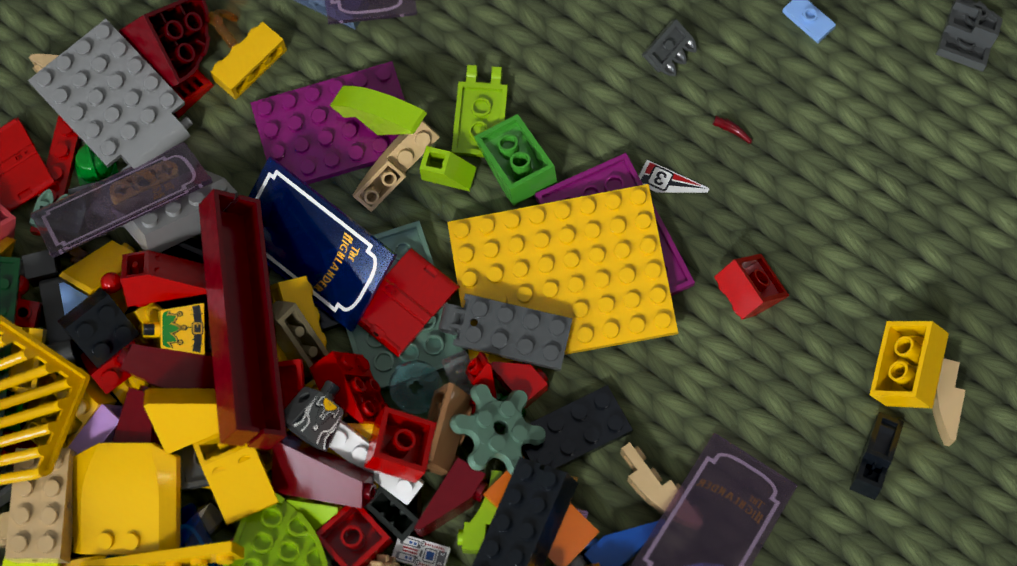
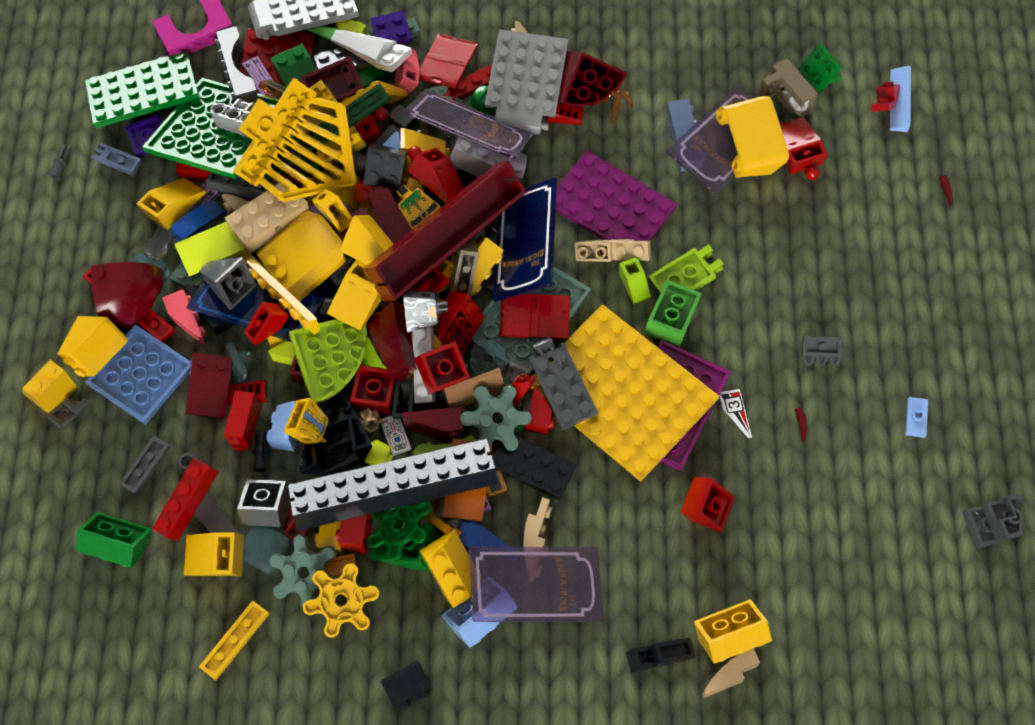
camera: 50 degrees right, 5 degrees down
(89, 425) = (328, 205): none -> yellow torso
(248, 60) = (610, 130): yellow brick -> none
(378, 110) = (634, 214): lime slope -> none

